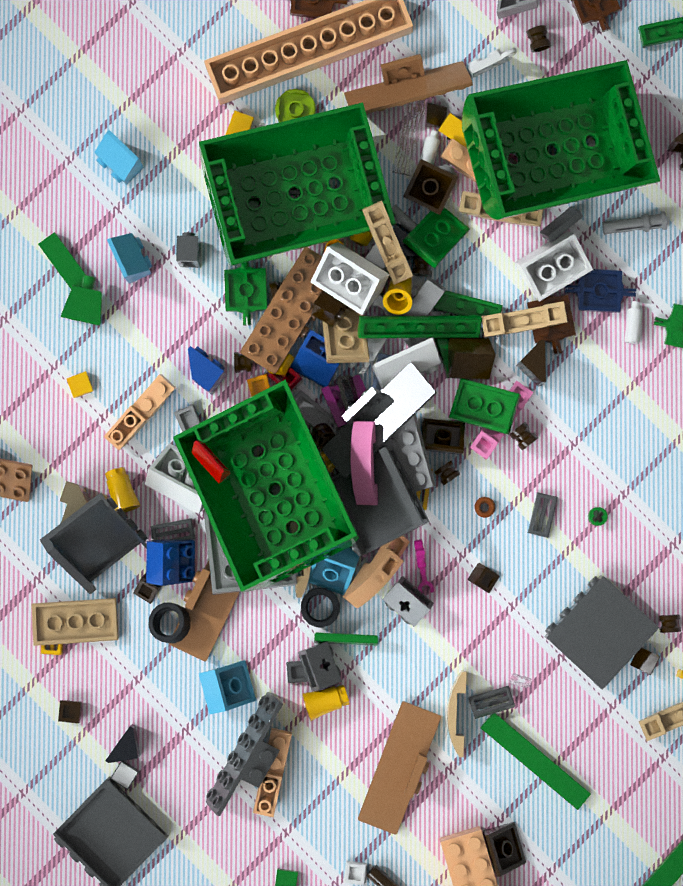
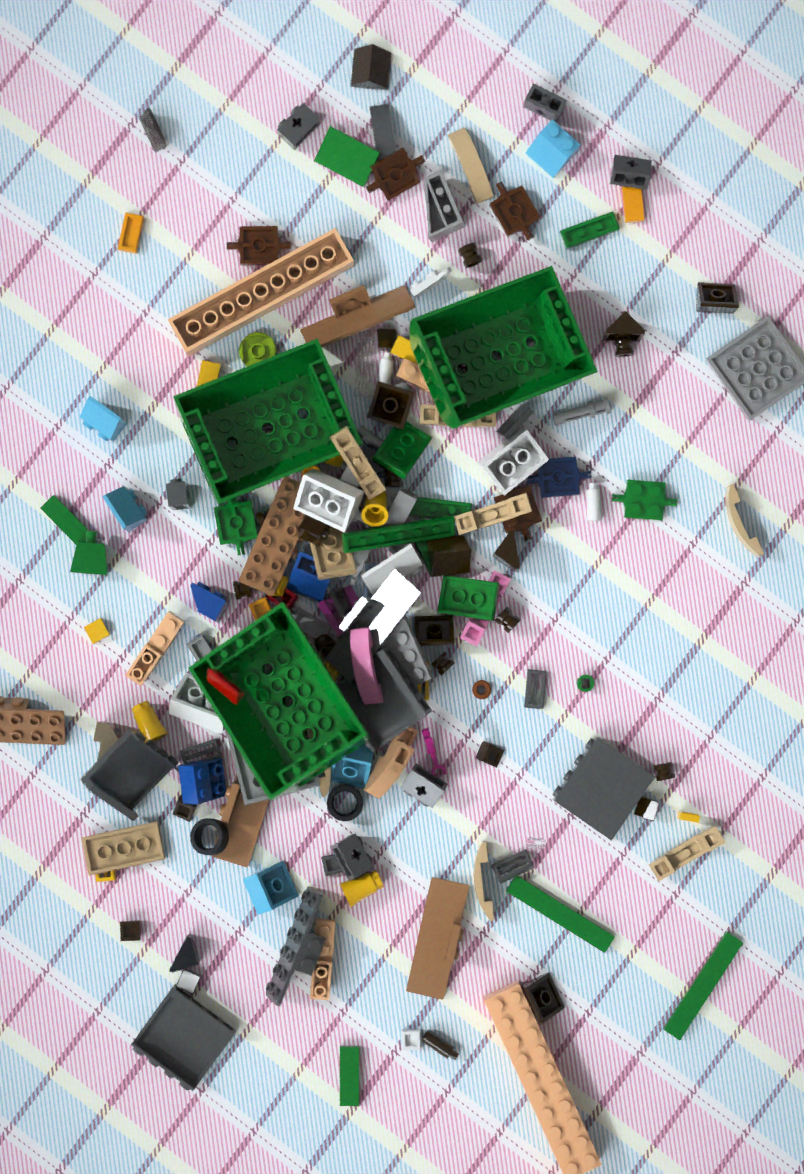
camera: 10 degrees left, 0 degrees up
(347, 639) = (372, 828): green tile -> none

